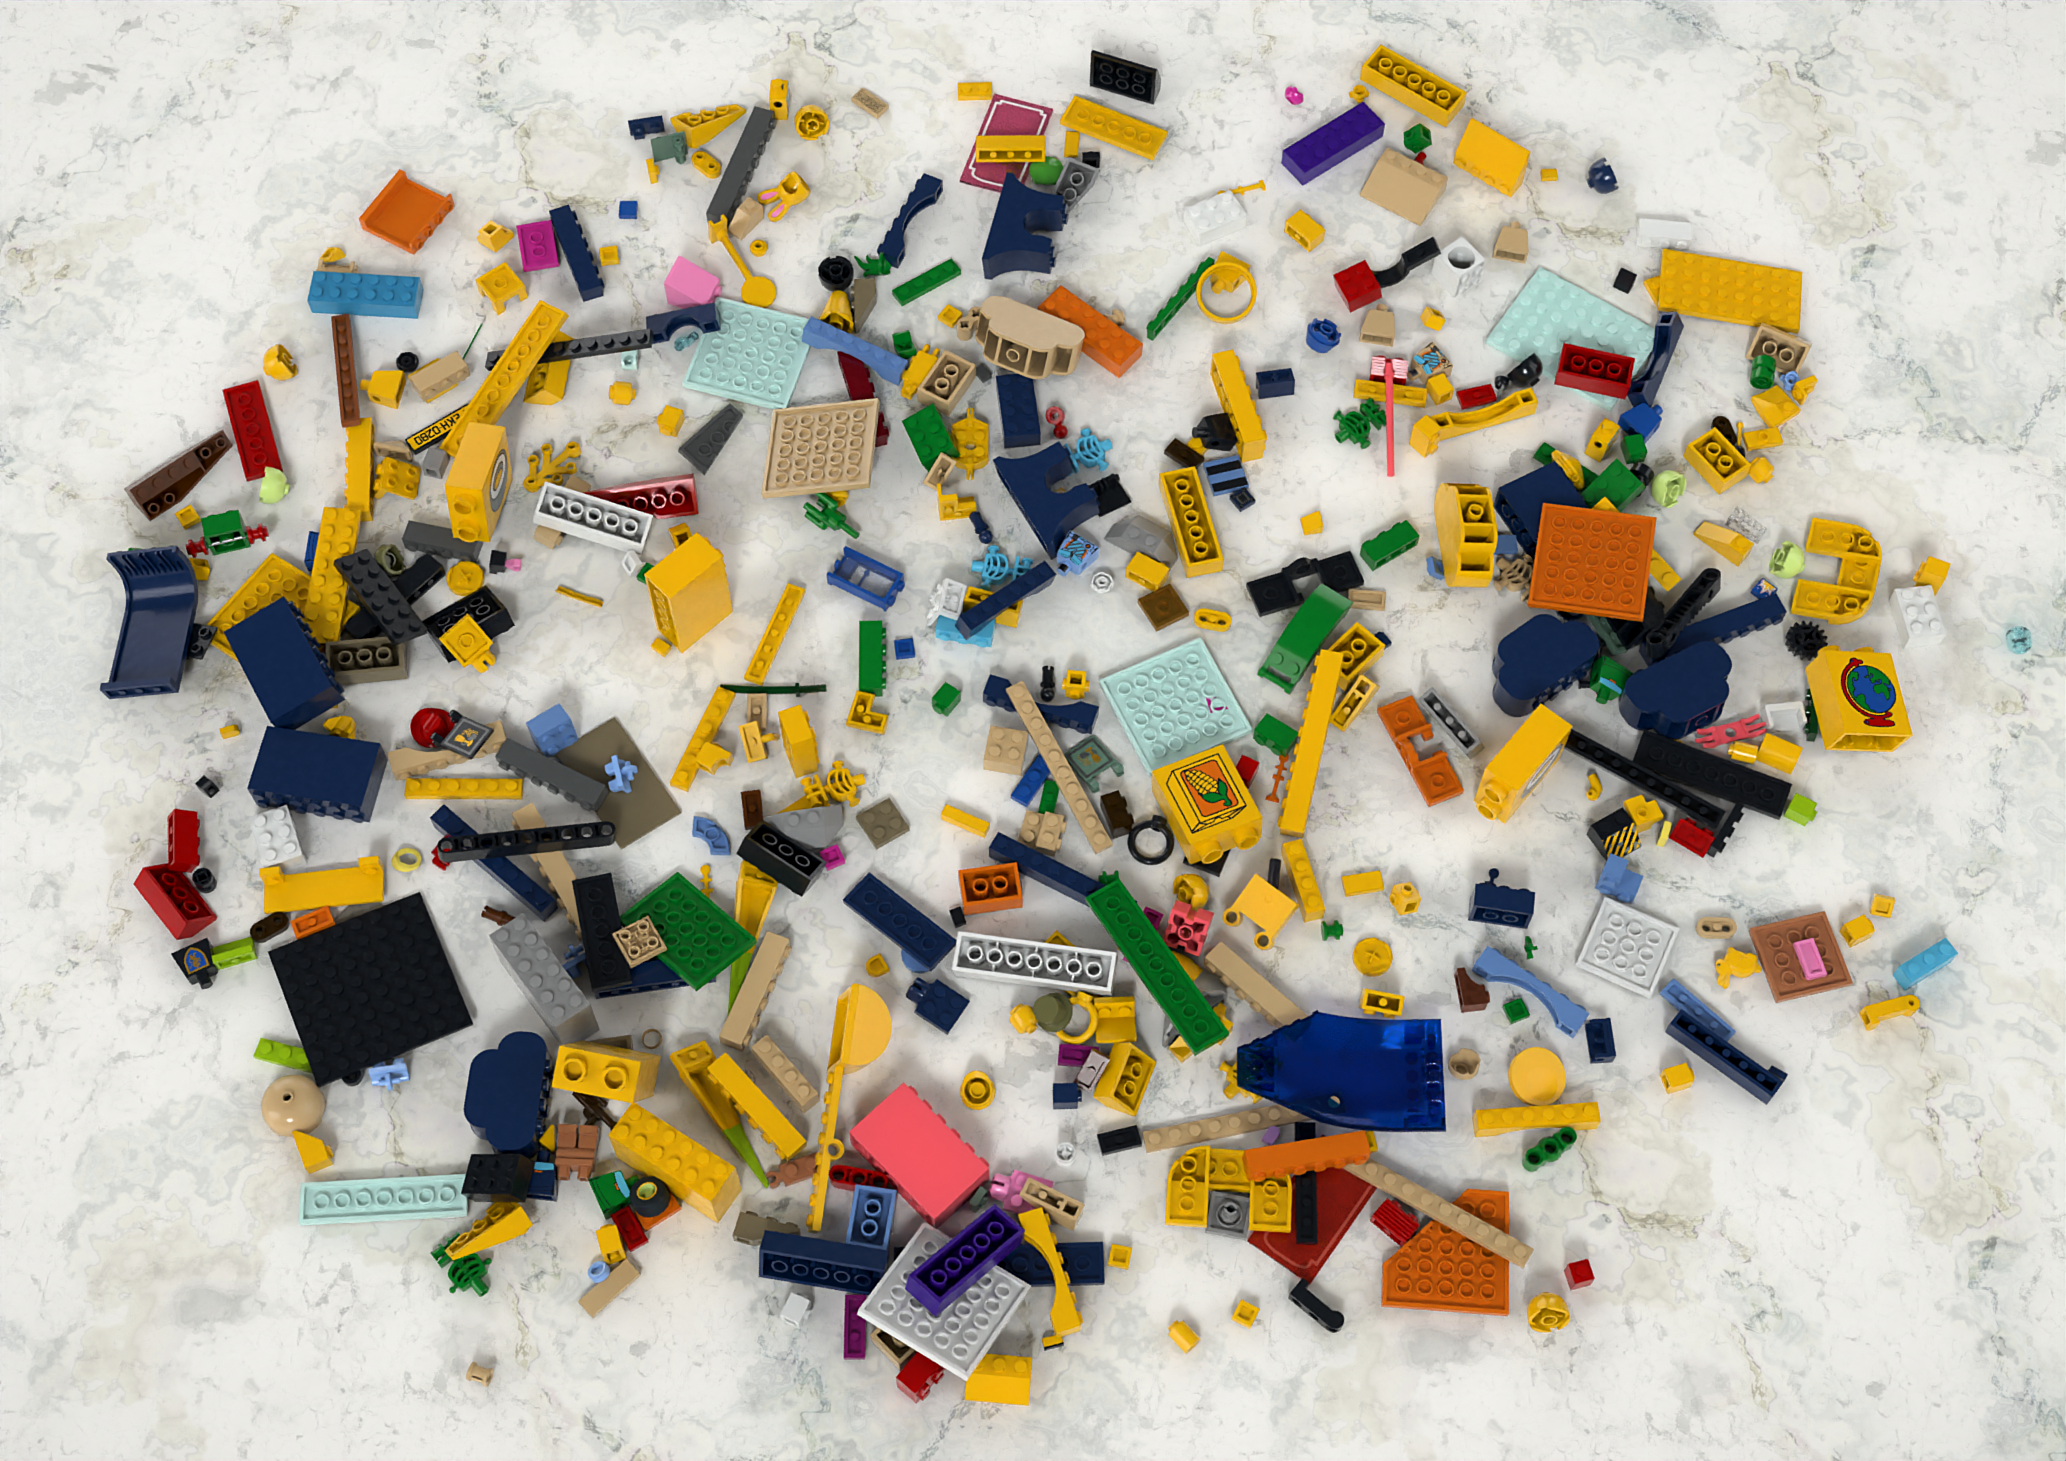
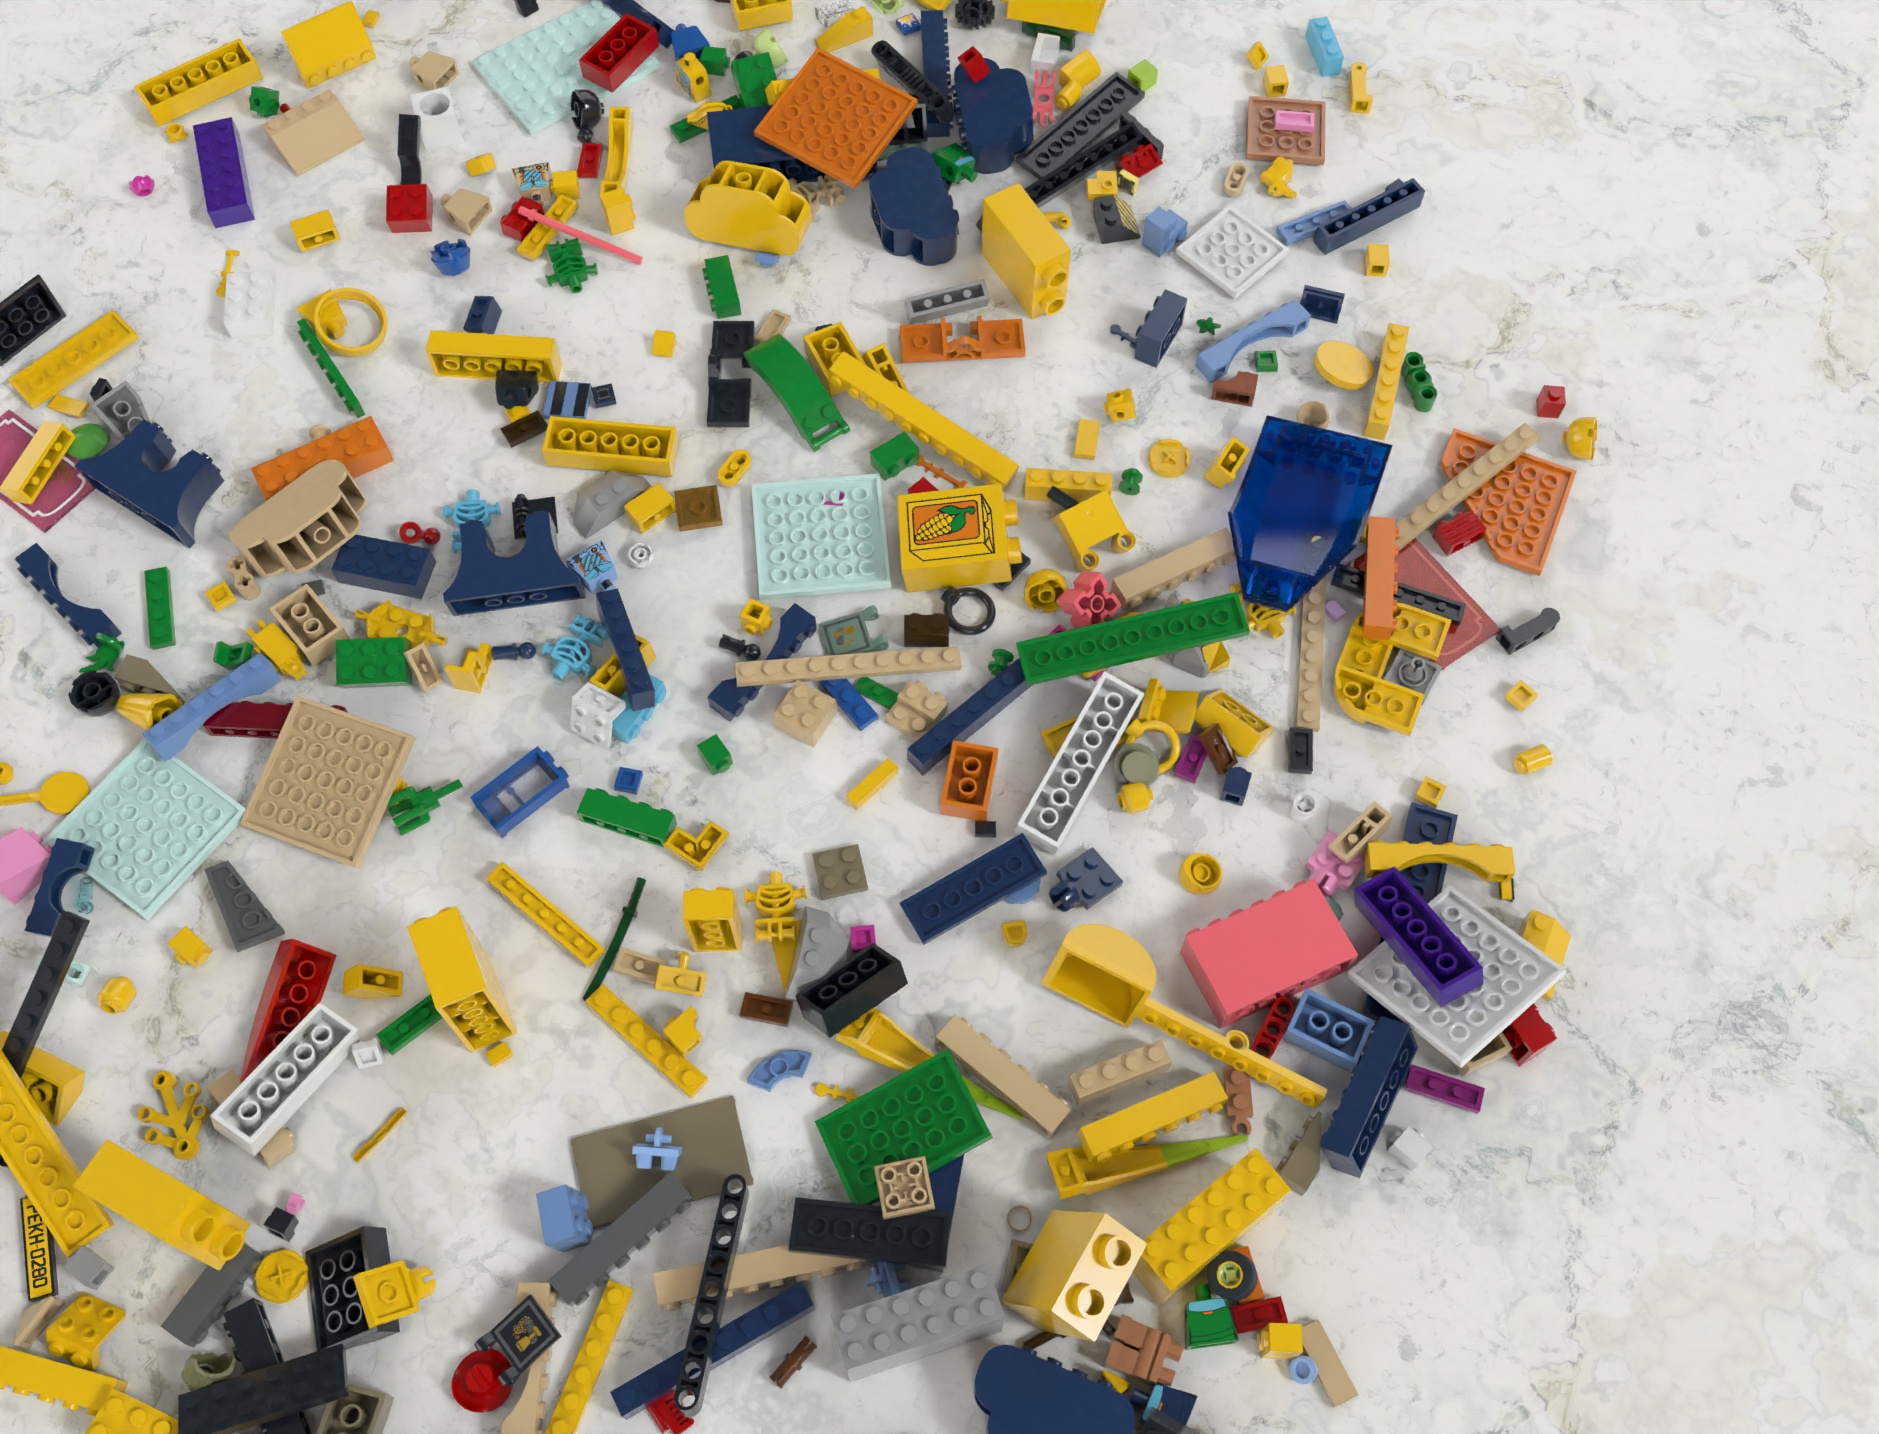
camera: 70 degrees left, 0 degrees up
(1707, 651) = (974, 64): none -> red brick

